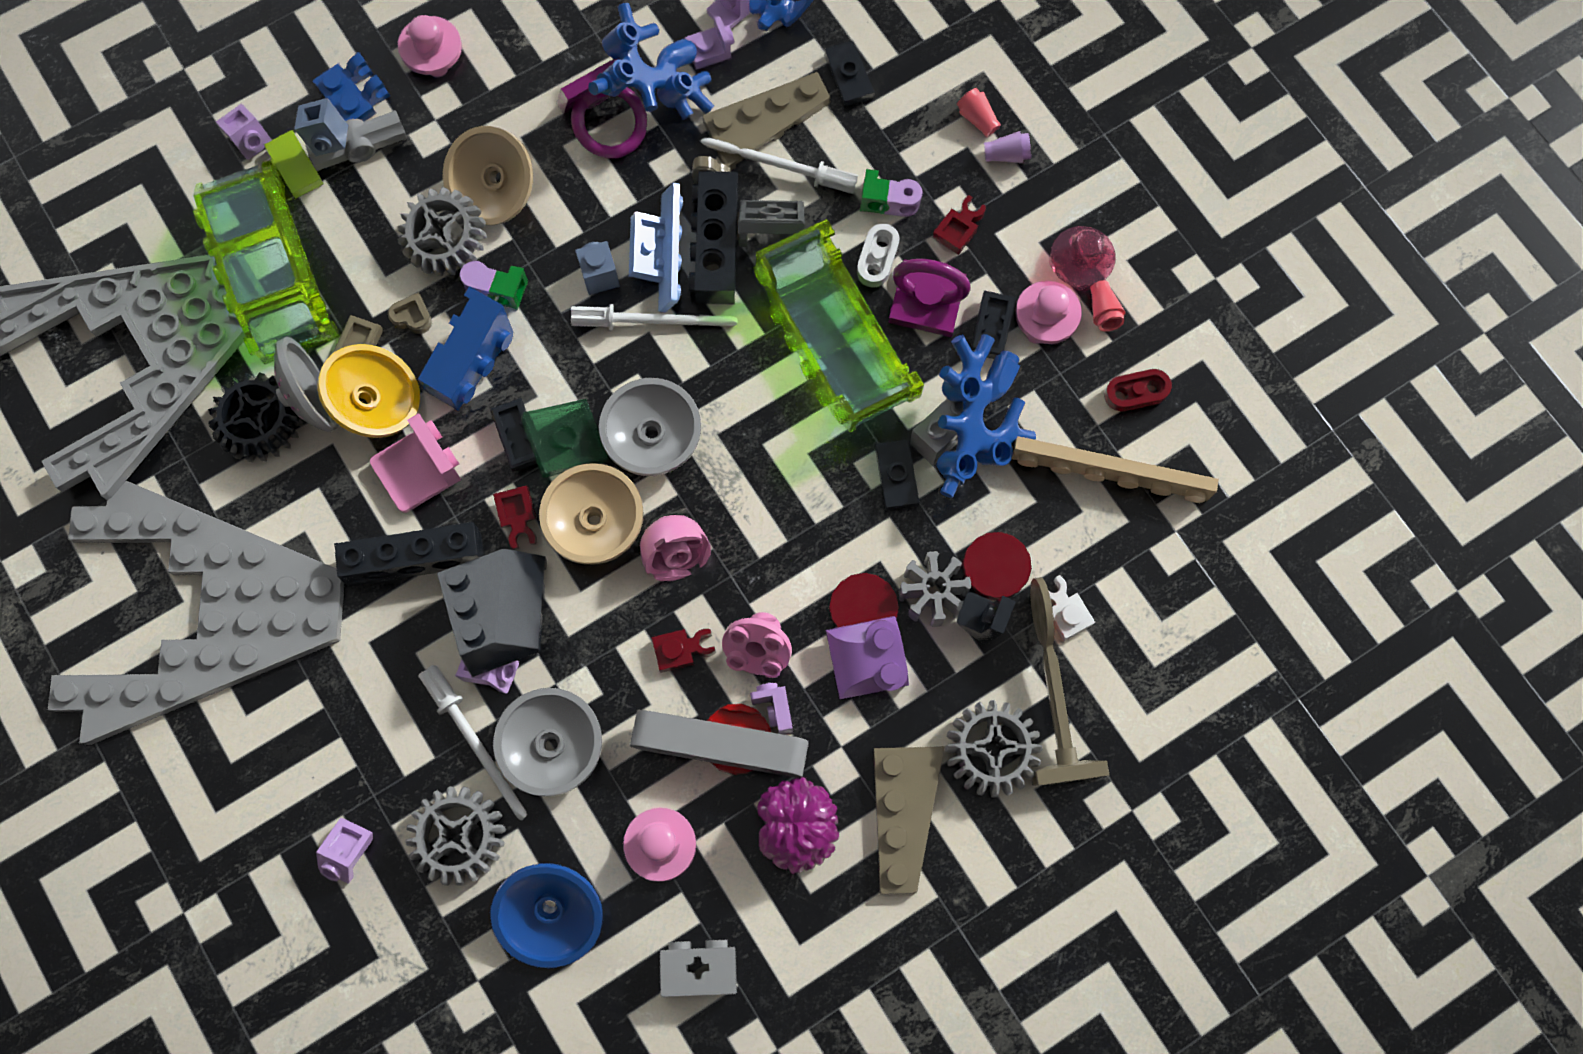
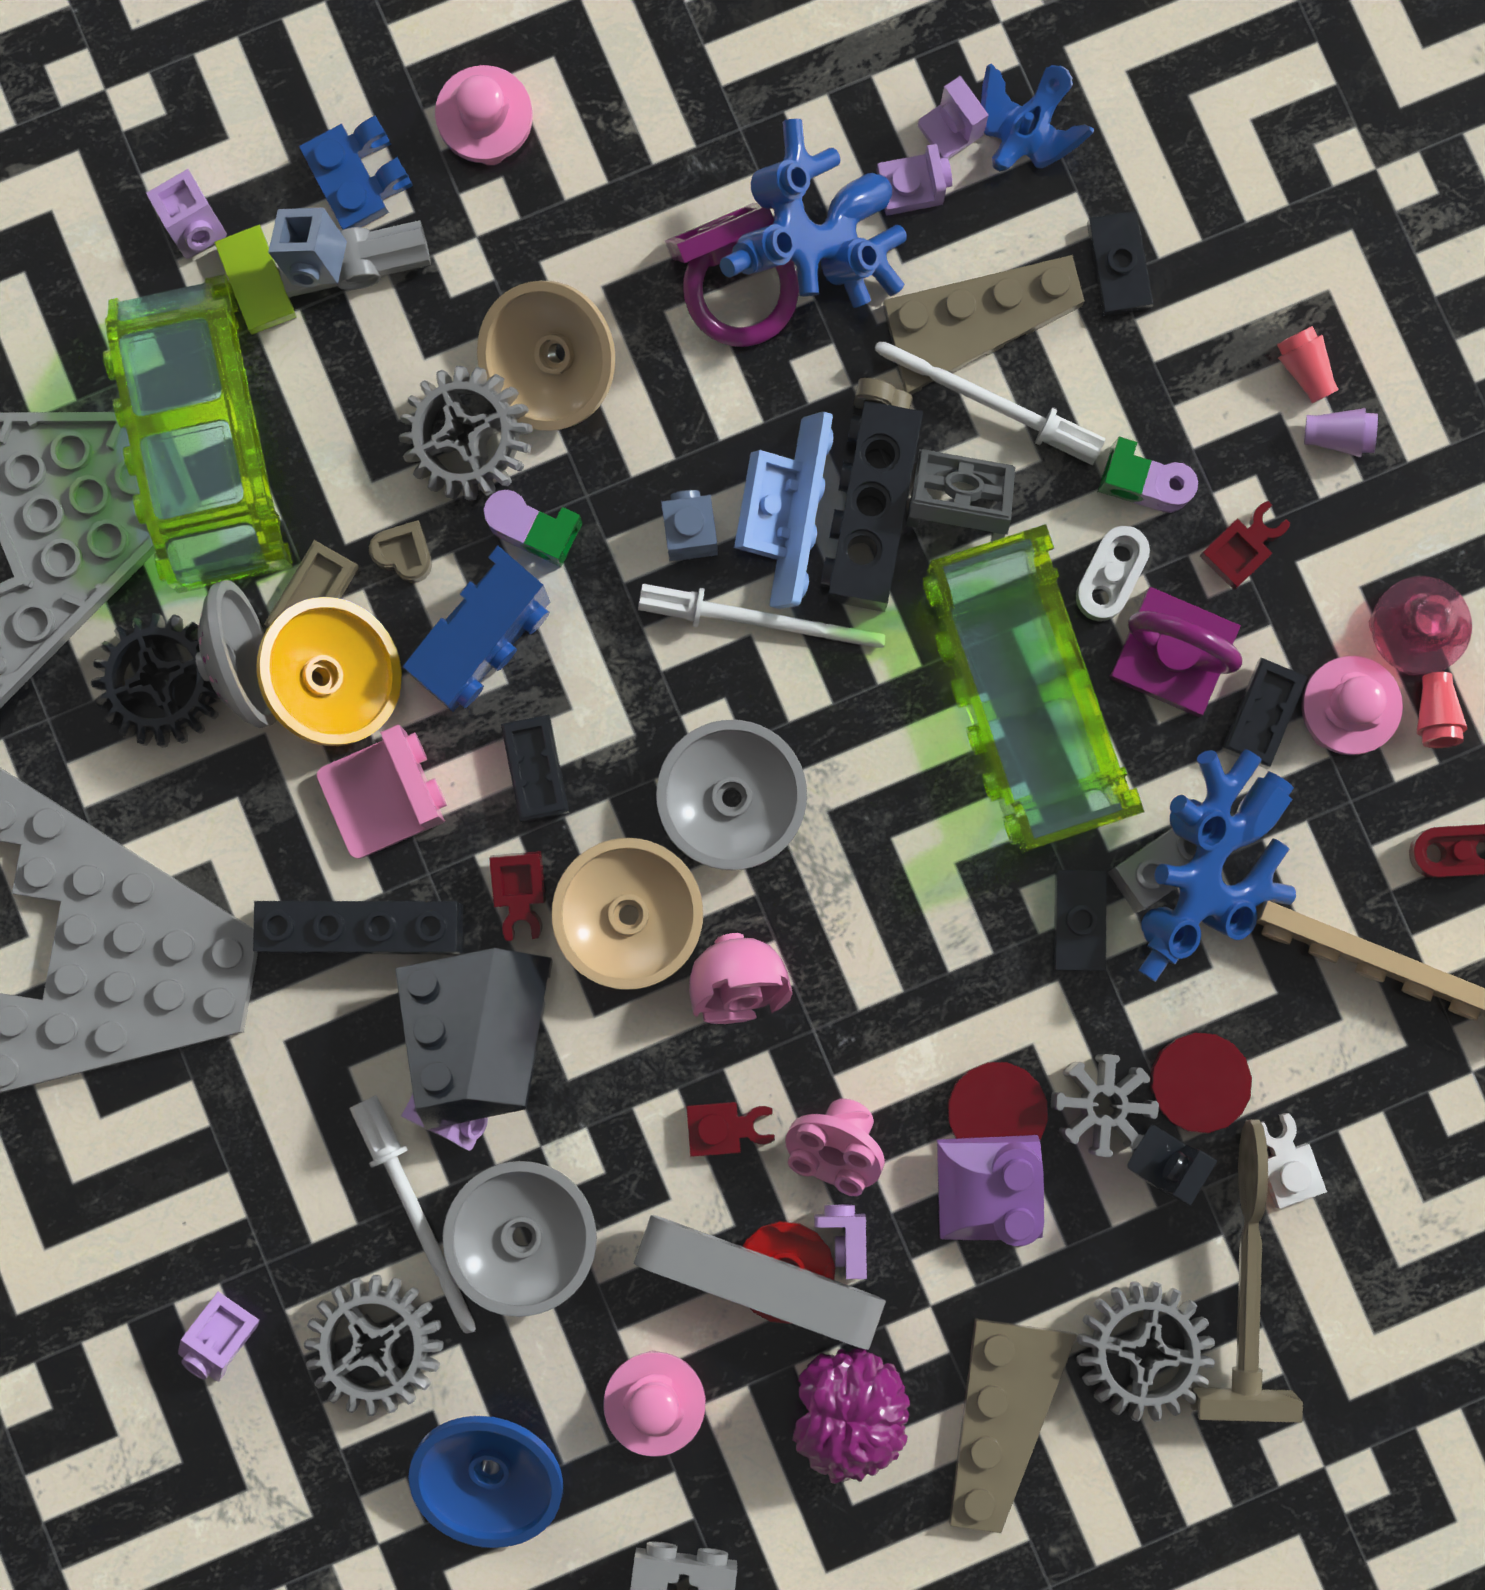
camera: 10 degrees right, 10 degrees up
(564, 437) = (603, 786): clear green tile -> none

